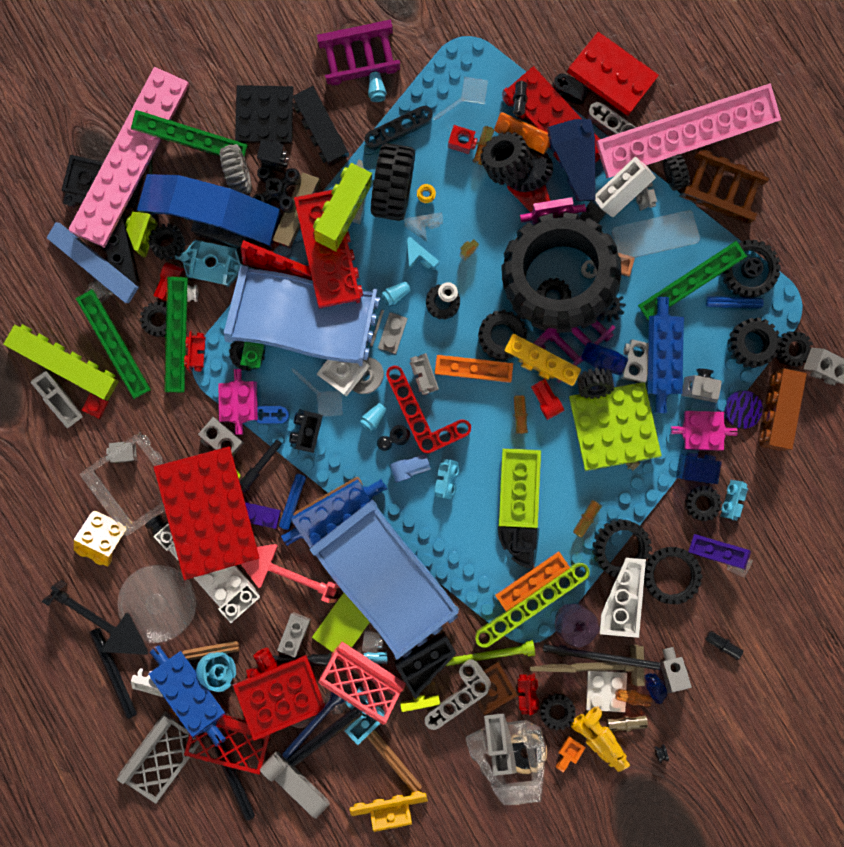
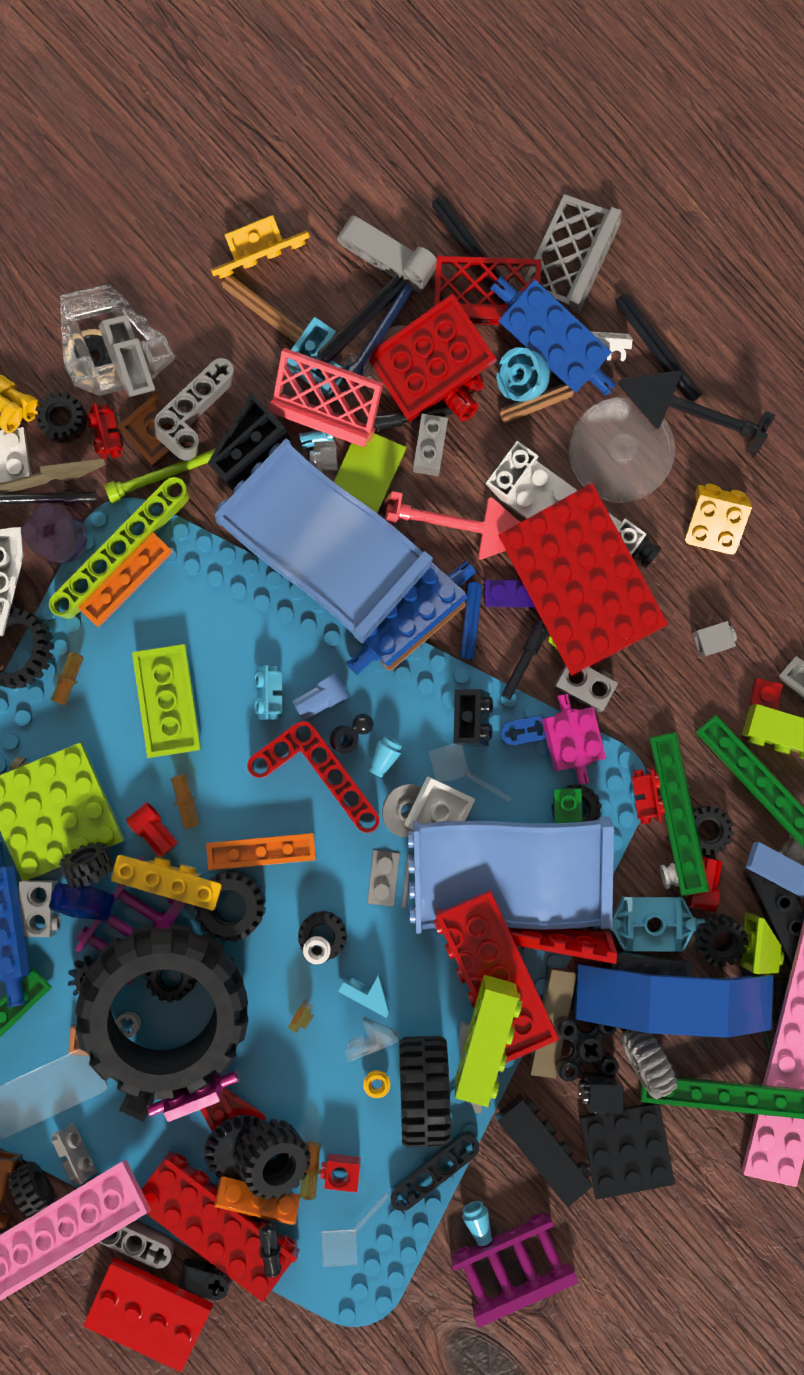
camera: 165 degrees right, 0 degrees up
(105, 496) = (723, 573): clear window -> none
(395, 293) = (392, 932): medium azure cone -> none
(420, 702) = (240, 392): neon yellow plate -> none
(426, 380) = (331, 837): light grey hinge -> none
(521, 543) = (151, 626): black brick -> none
(571, 751) = (33, 368): orange plate -> none
(576, 150) = (175, 1192): dark blue wedge -> none
(624, 187) = (98, 1152): white brick -> none

